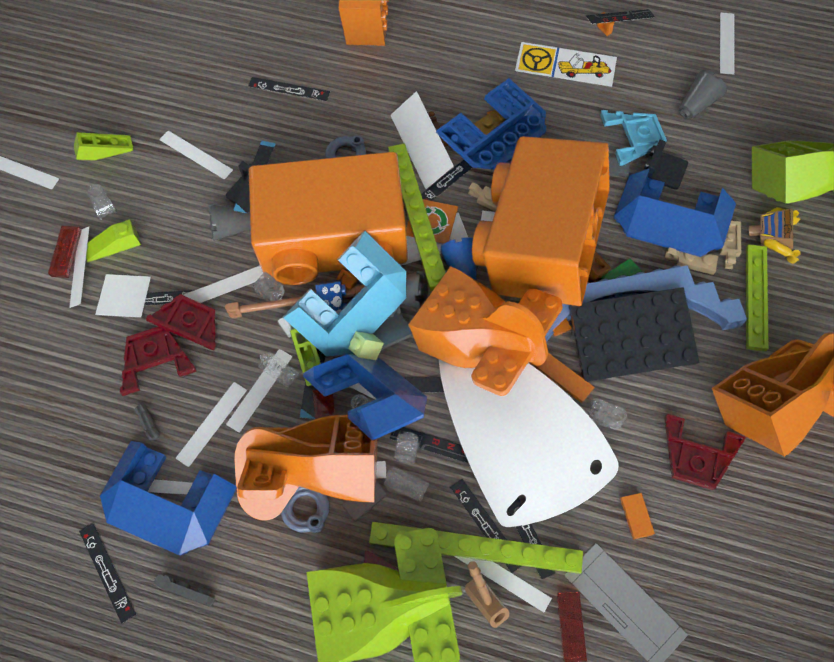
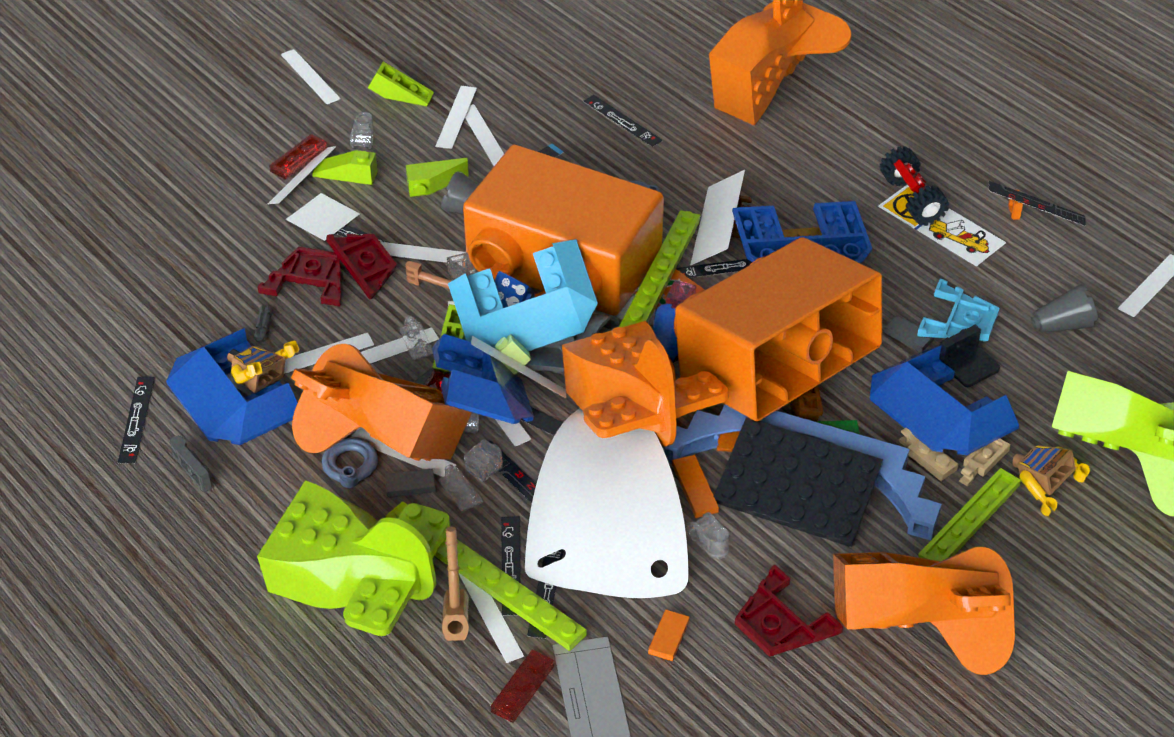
camera: 30 degrees right, 20 degrees down
(163, 149) = (456, 117): none -> white sticker
(176, 469) = (258, 367): none -> torso
(184, 215) = (433, 176): none -> lime slope
(377, 356) = (518, 366): none -> white sticker
(445, 225) = (679, 292): none -> clear pink brick
(517, 30) = (928, 202): none -> black plate

